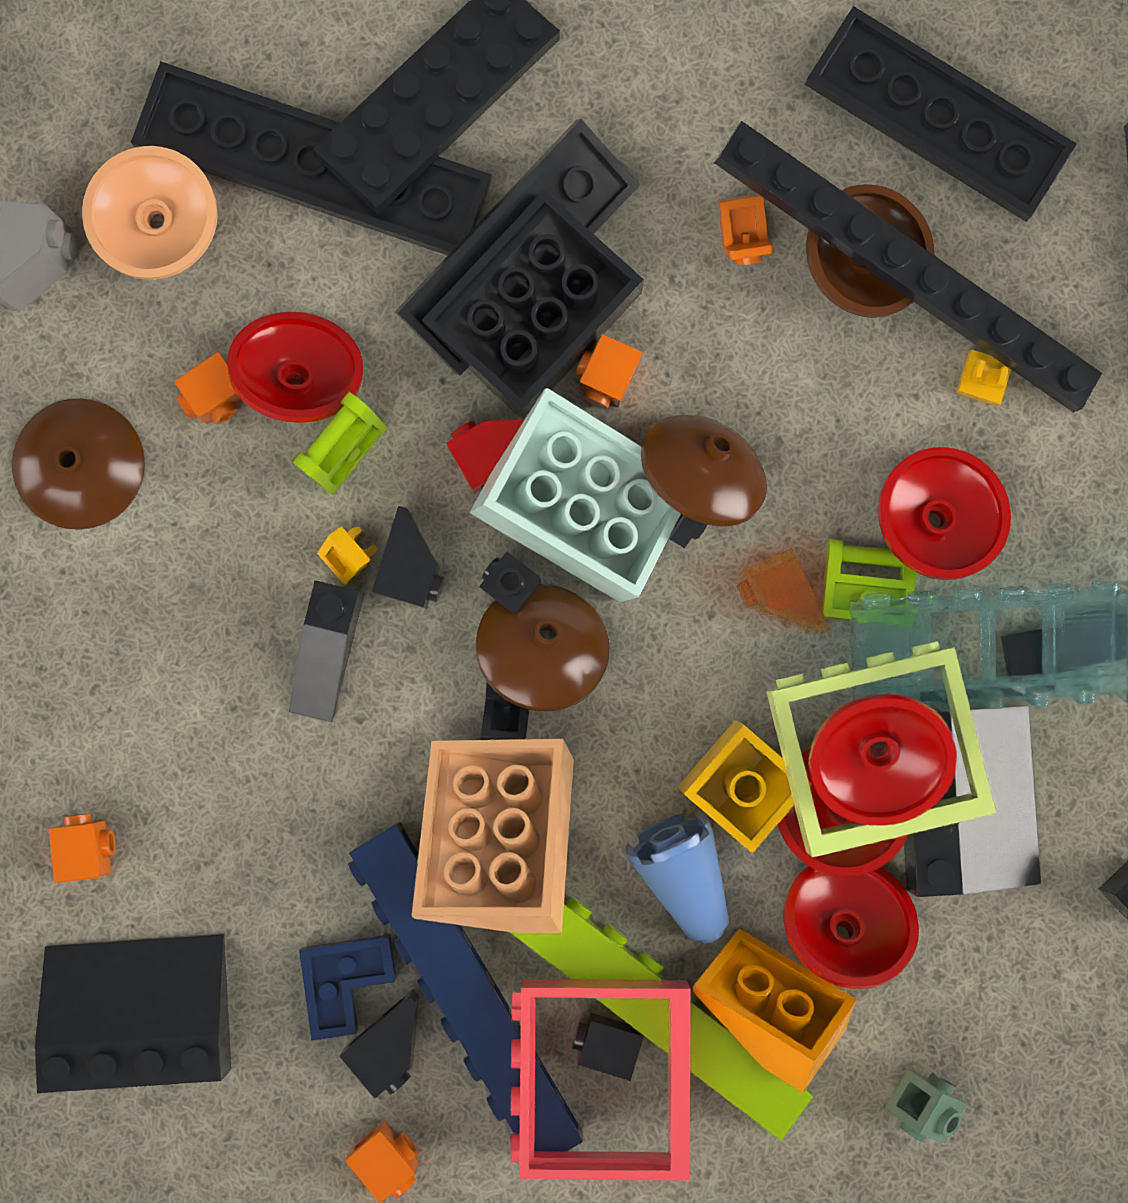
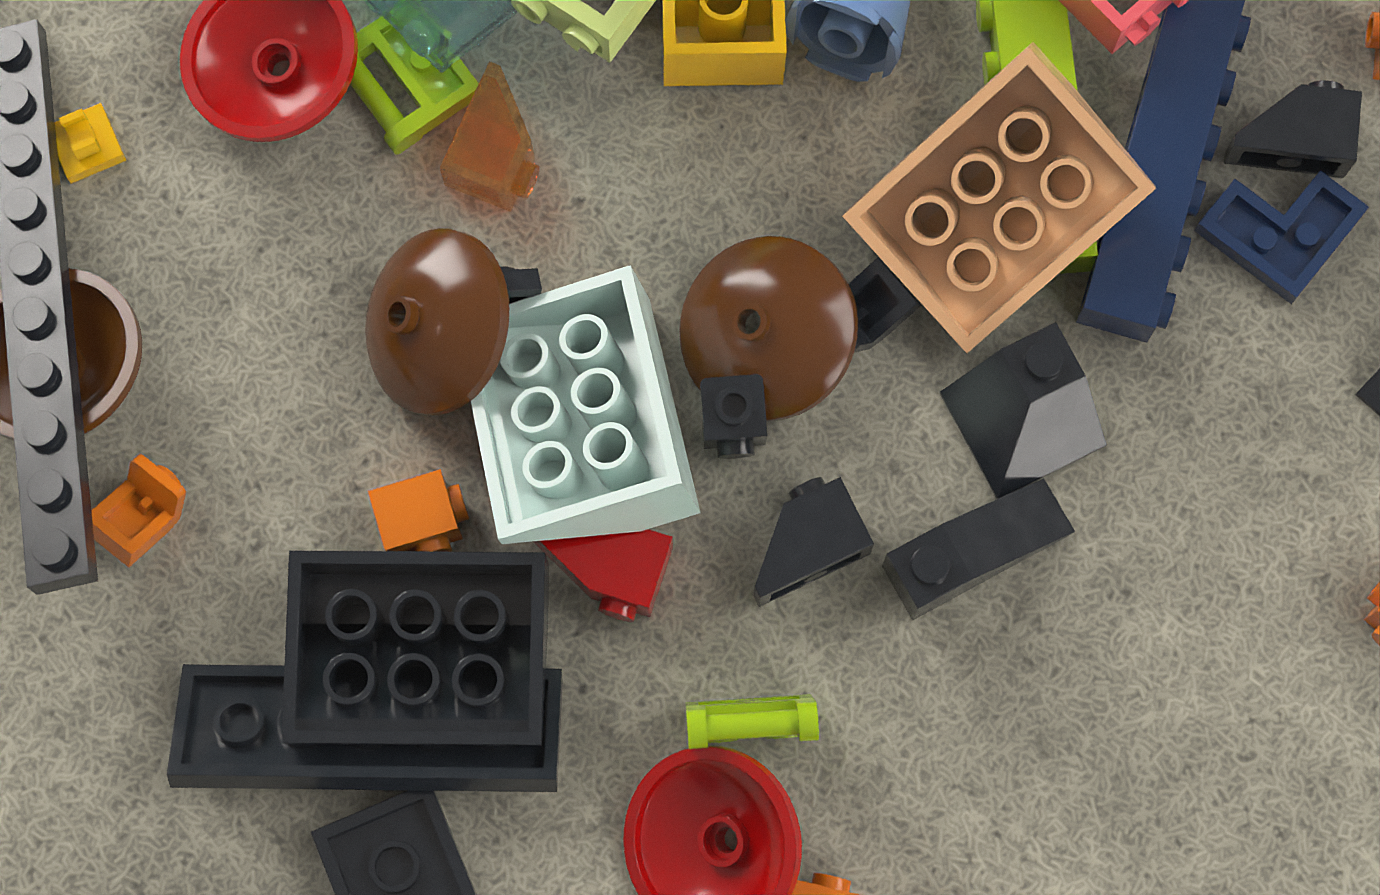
camera: 130 degrees left, 10 degrees down
(345, 555) = (862, 614): yellow tile -> none
(373, 743) = (1026, 411): none -> black slope

